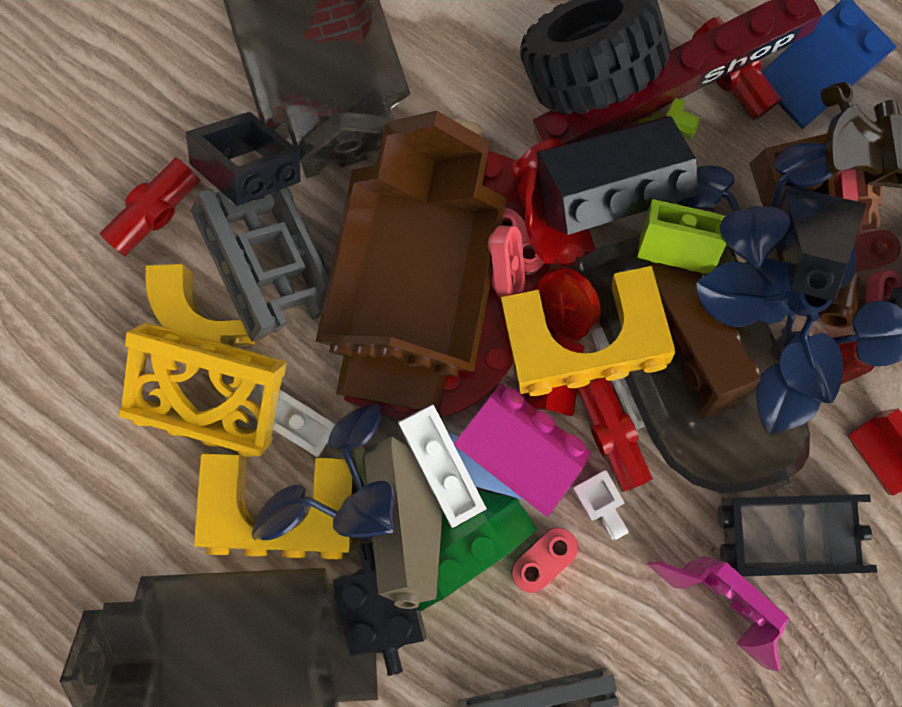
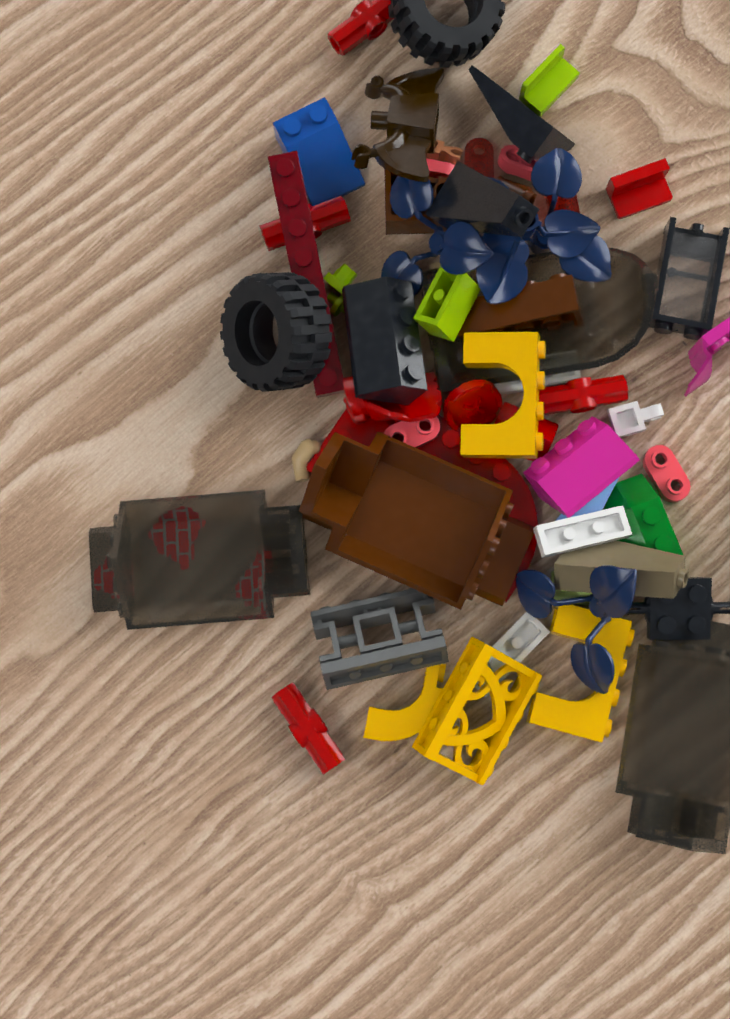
camera: 70 degrees left, 0 degrees up
(217, 143) = (267, 642): black window -> none
(507, 261) = (432, 442): coral plate -> none

